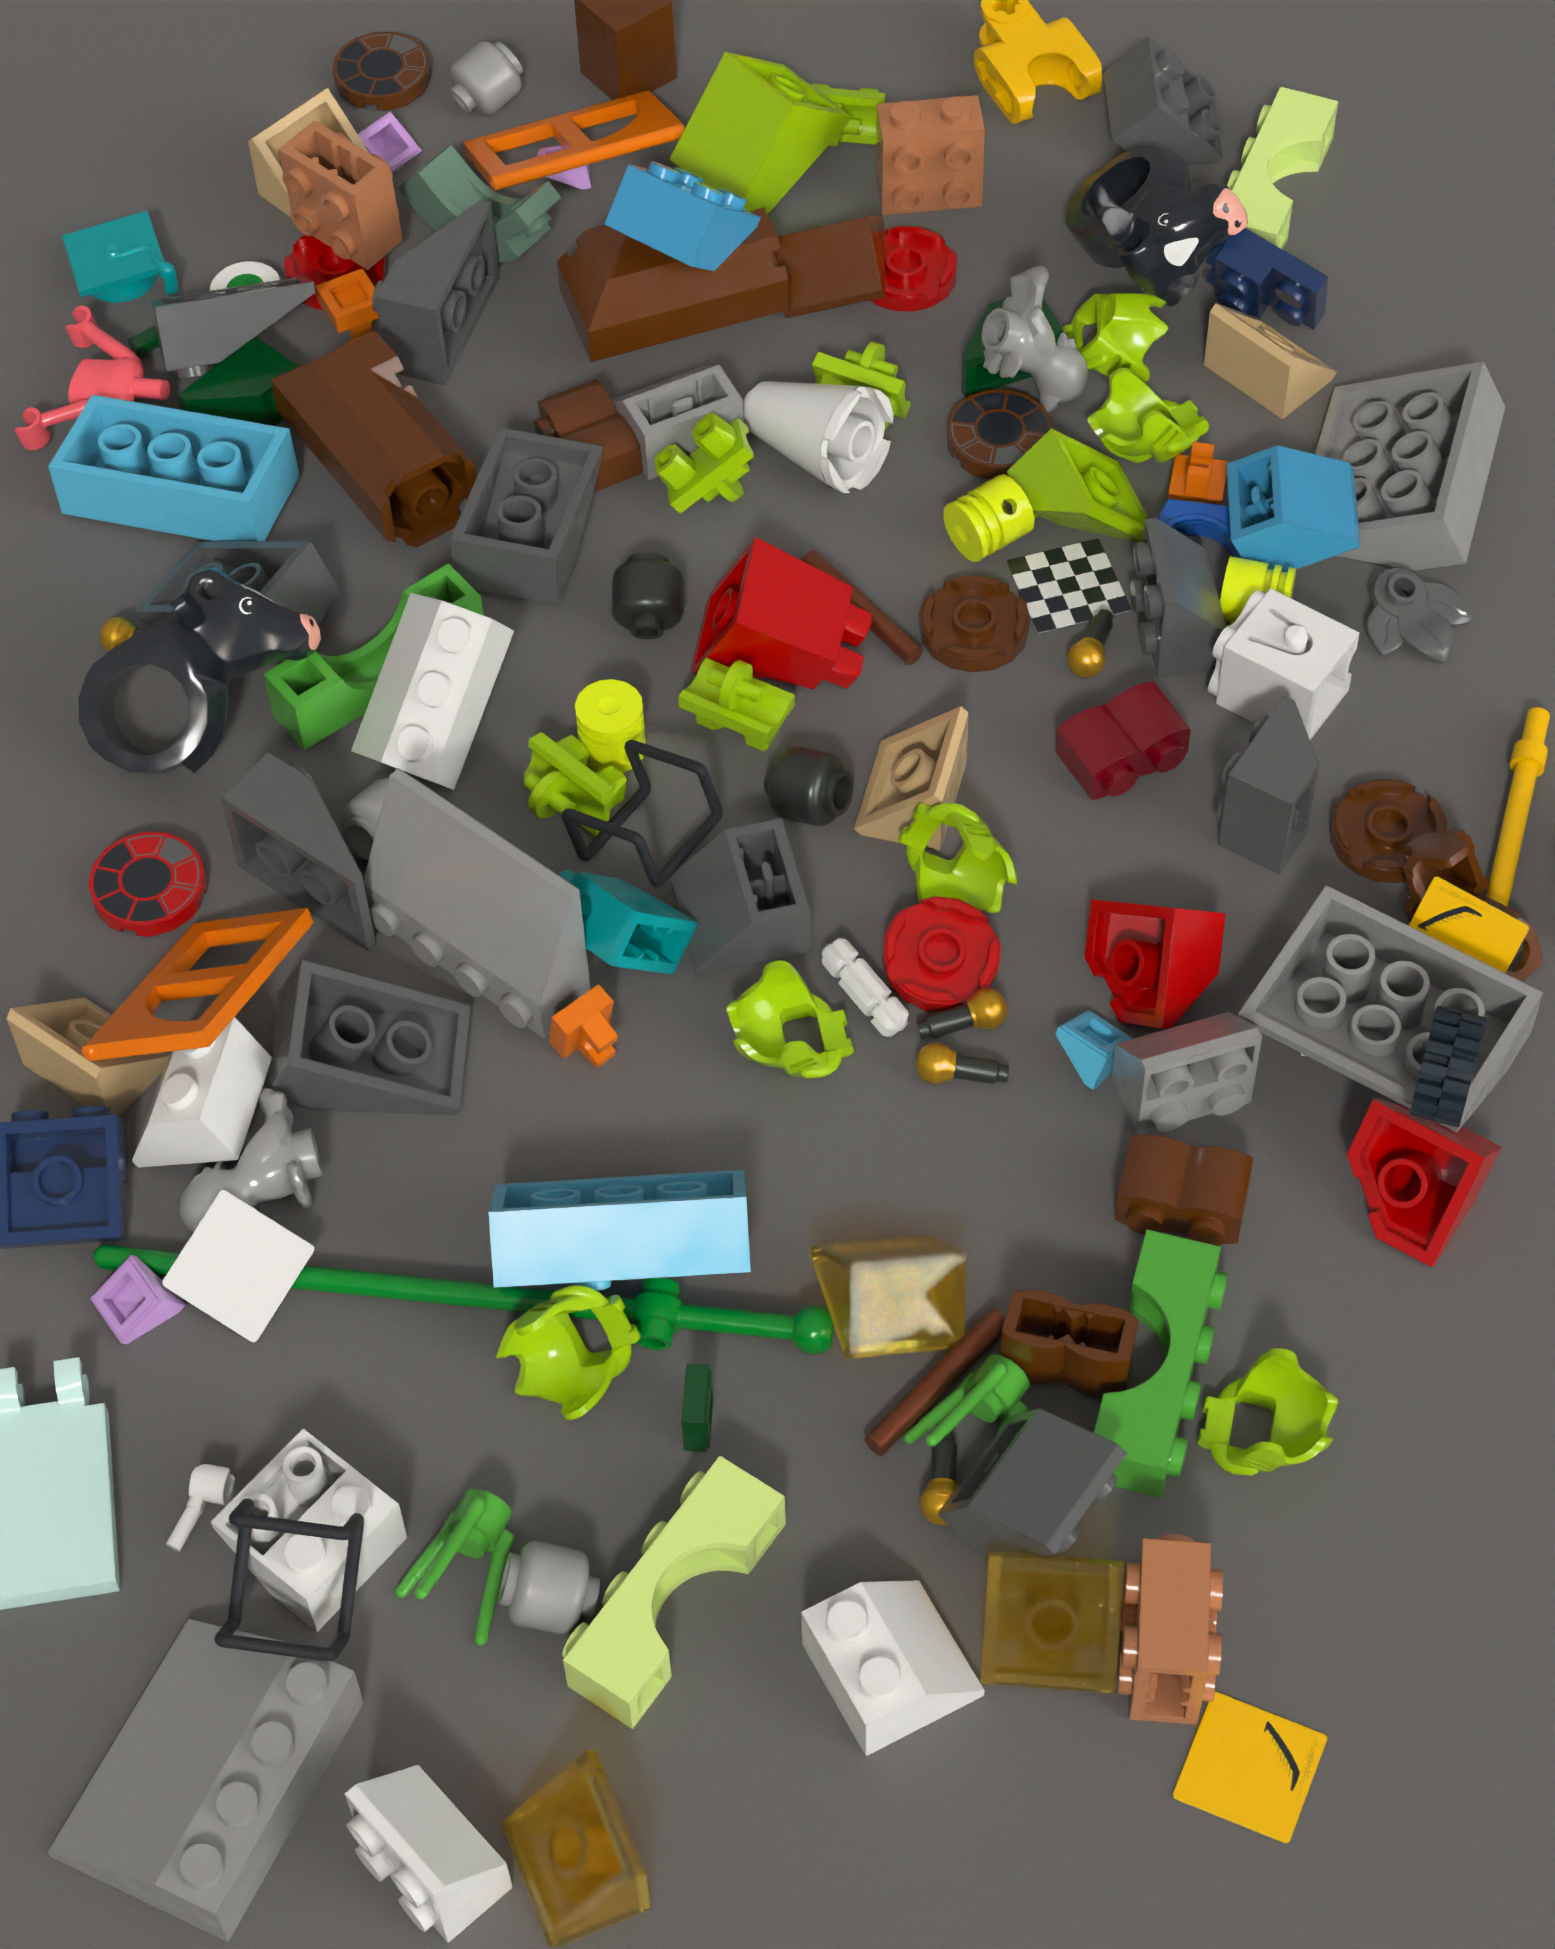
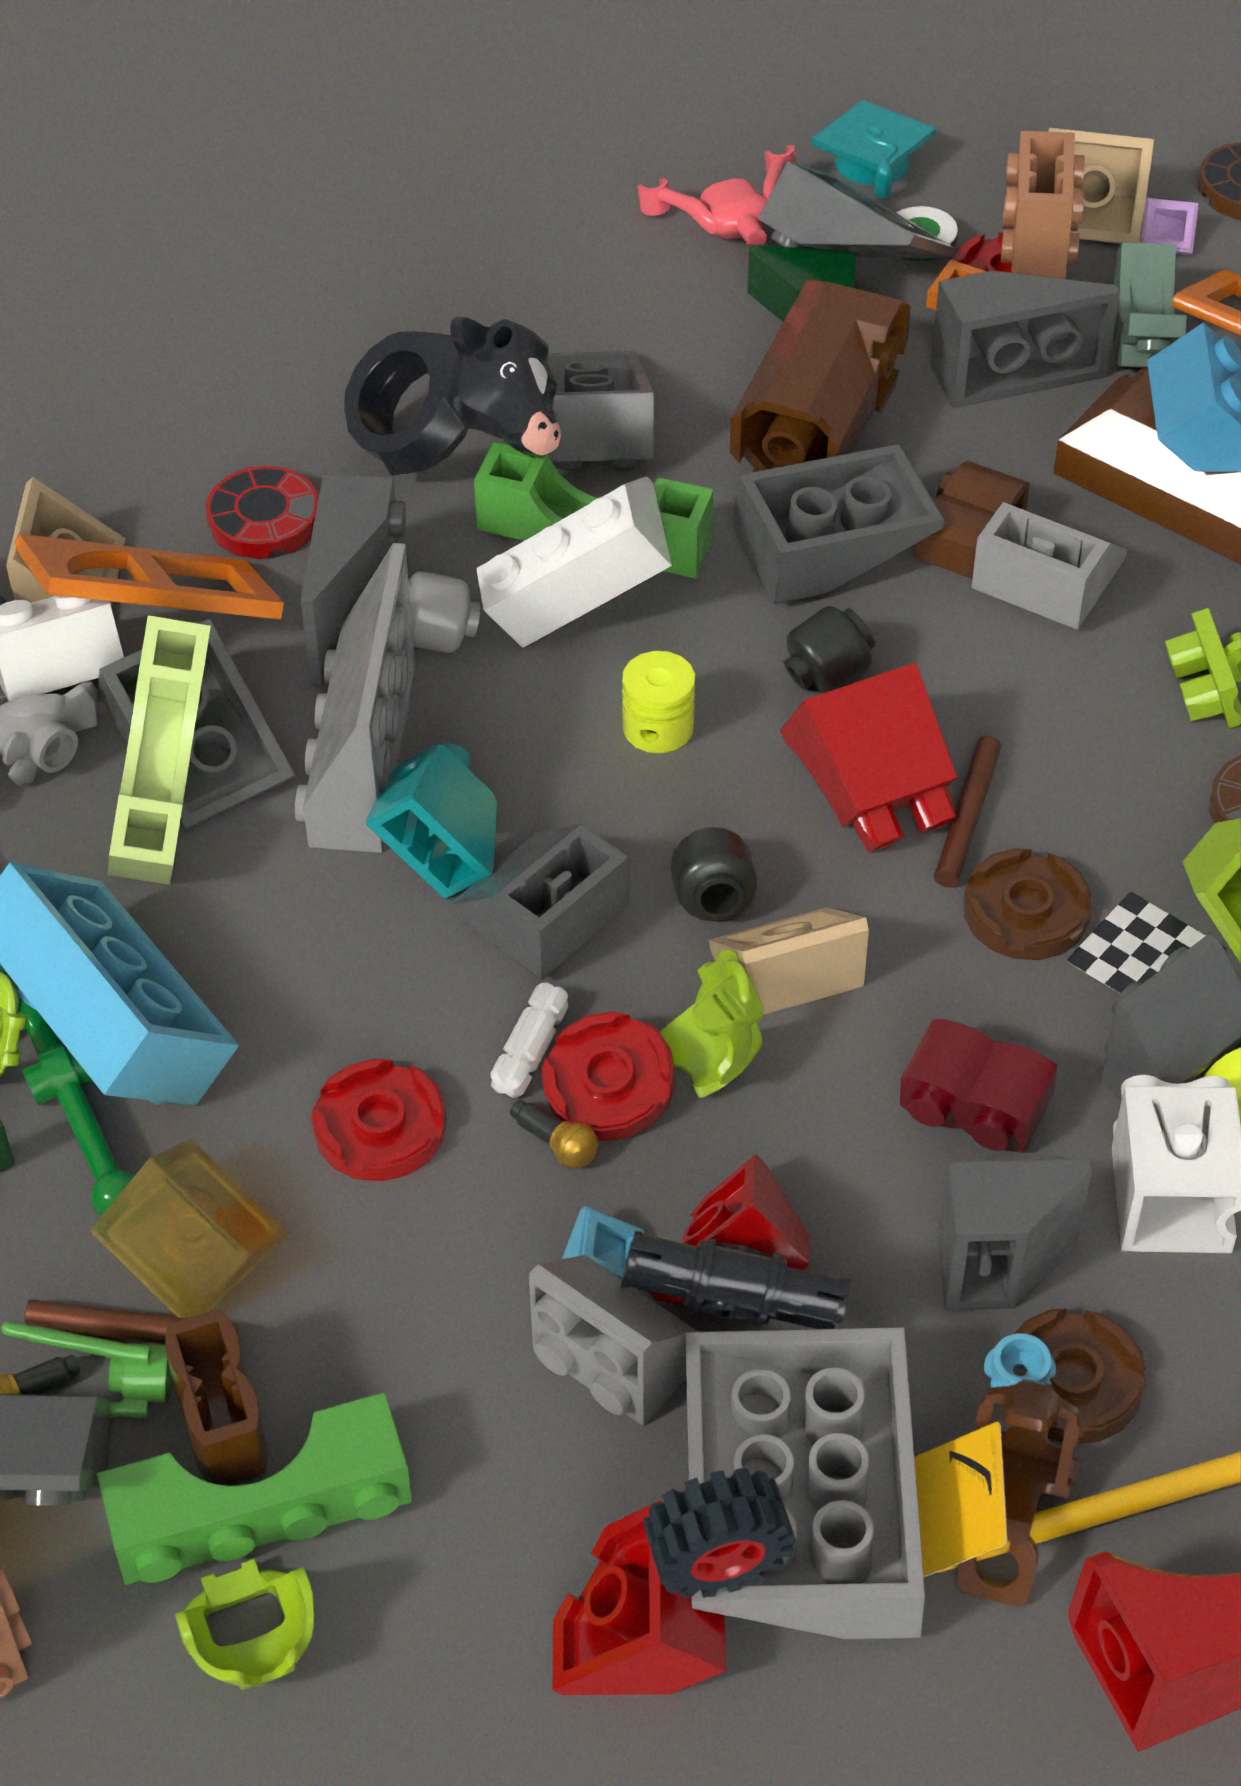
camera: 55 degrees right, 5 degrees down
(174, 471) = (677, 291): medium azure brick -> none
(362, 1023) = (158, 750): none -> yellowish green arch
(562, 780) = (554, 702): lime hips -> none
(585, 1027) = (323, 859): orange tile -> none
(613, 828) = (517, 765): black piece -> none
(710, 468) = (1011, 613): lime hips -> none
(738, 701) = (760, 775): lime hips -> none
(781, 998) = (421, 986): lime helmet -> none
(823, 428) = (1130, 671): white cone -> none
(862, 1124) = (378, 1120): none -> red tile
(938, 1064) = (484, 1140): piece -> none
(981, 521) = (1137, 830): neon yellow piece -> none
(1088, 655) = (1063, 1009): pearl gold piece -> none
(1183, 1189) = (476, 1412): reddish brown brick -> none
(1228, 958) = (735, 1282): none -> black pin
(1381, 837) = (1020, 1352): none -> medium azure plate

